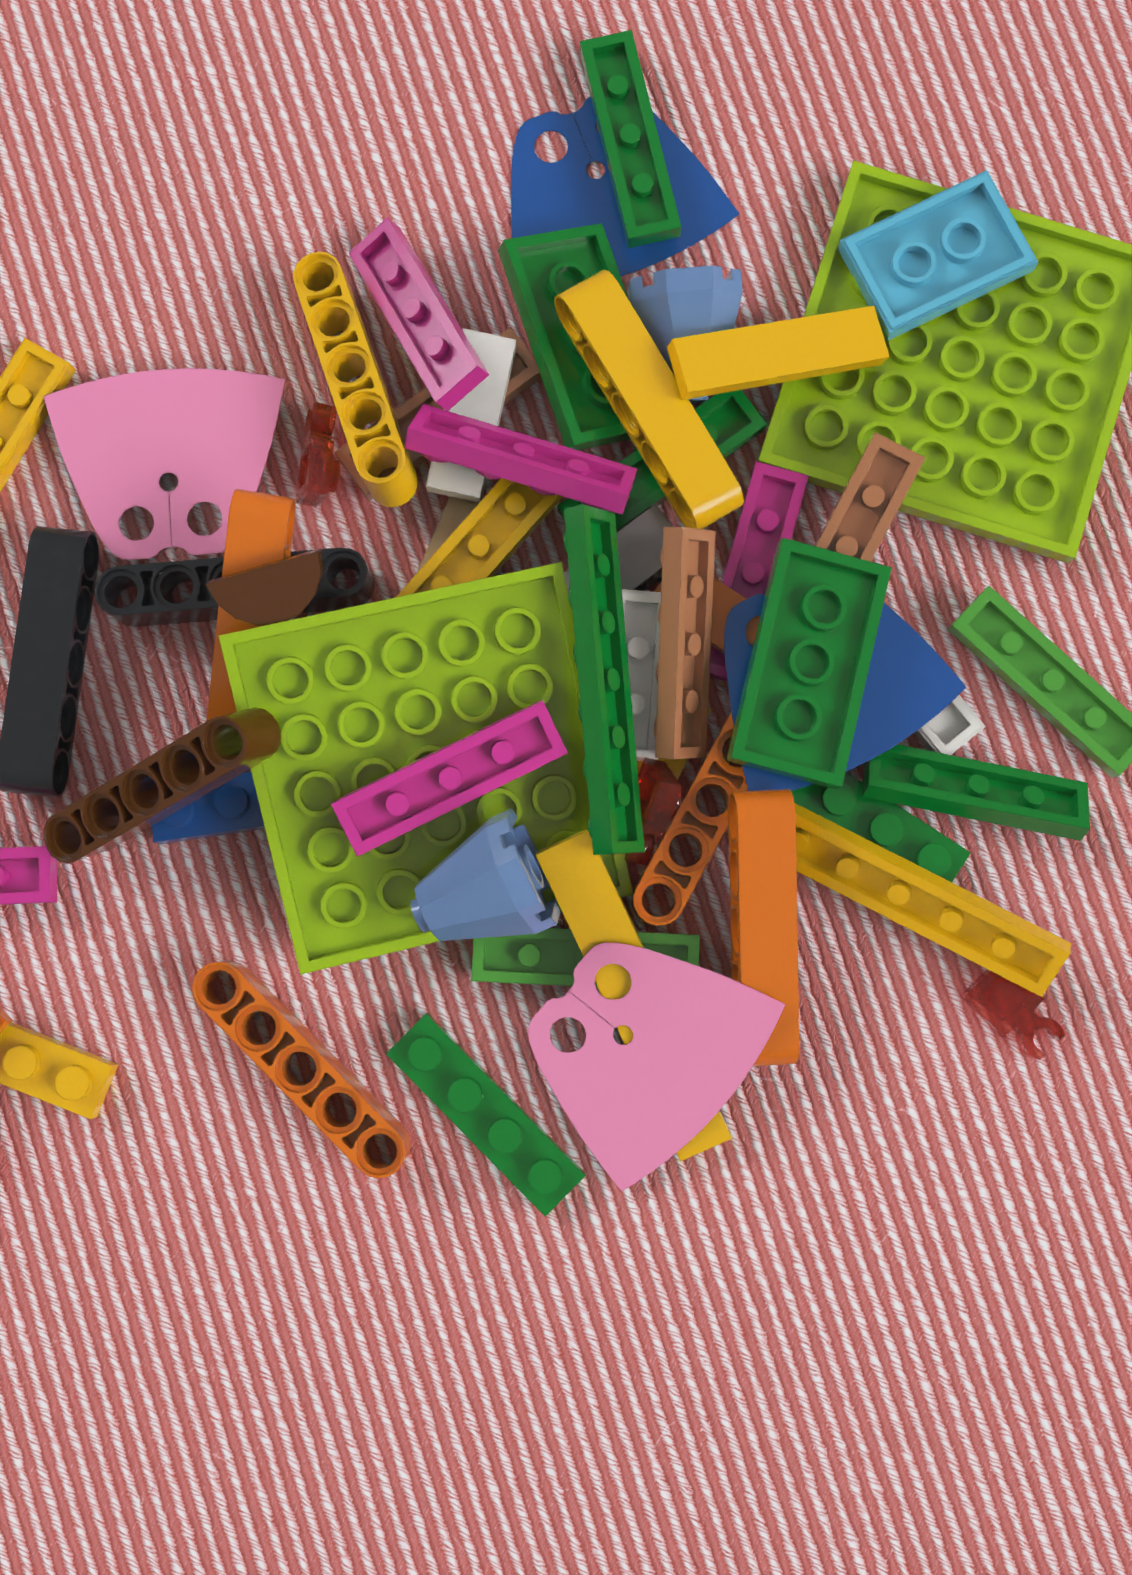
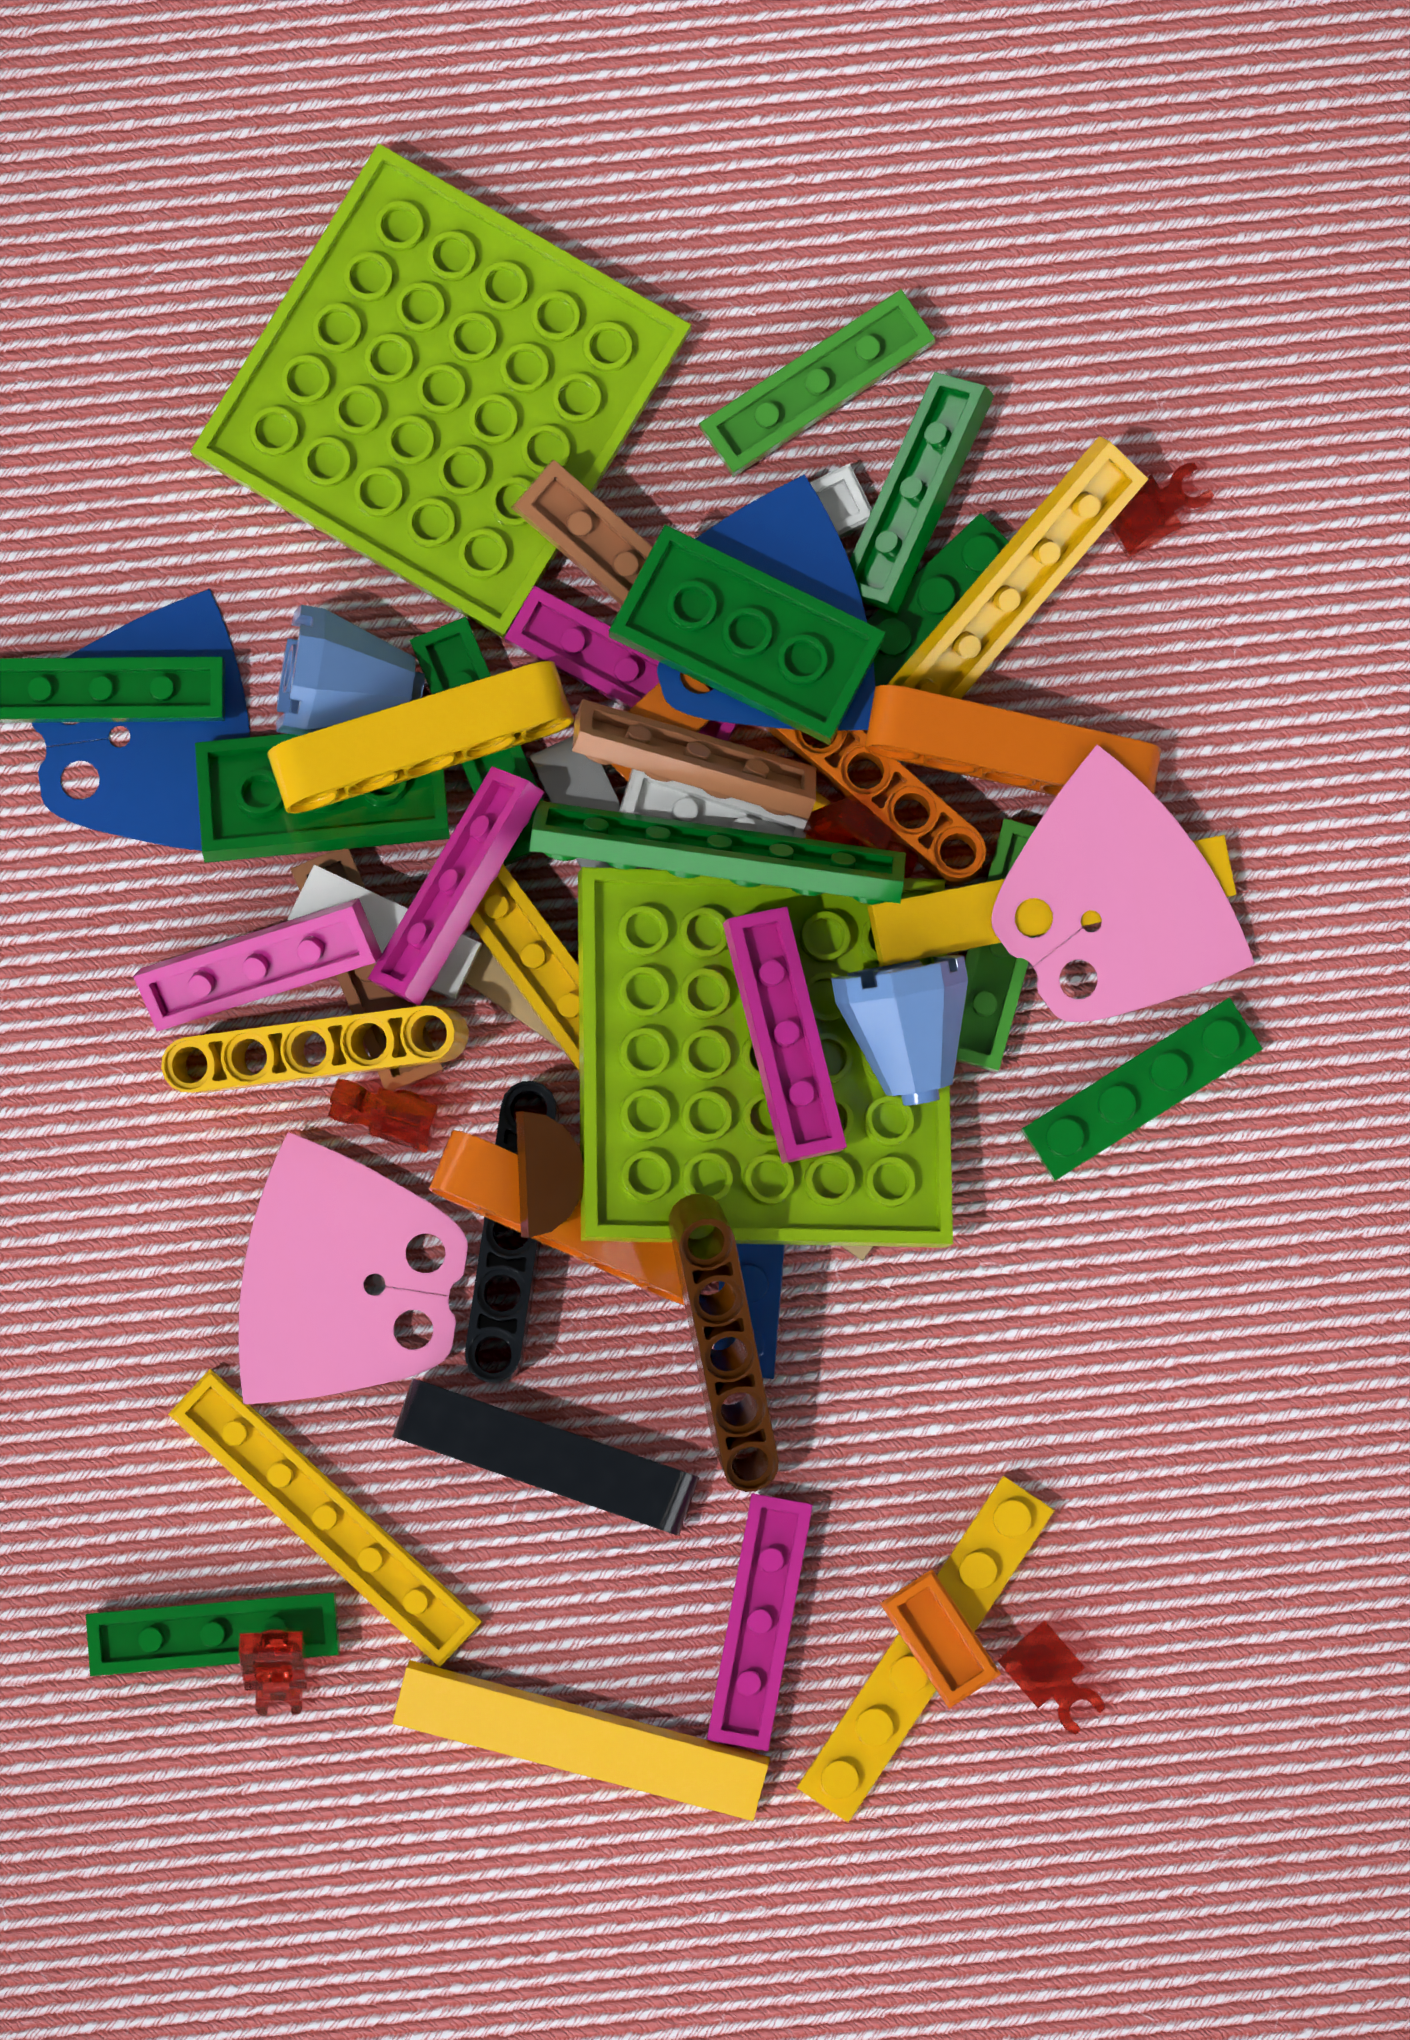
camera: 75 degrees left, 0 degrees up
(275, 1059) = (1072, 1248): orange beam -> none
(777, 352) = (401, 586): yellow tile -> none
(937, 255) = (323, 388): medium azure tile -> none

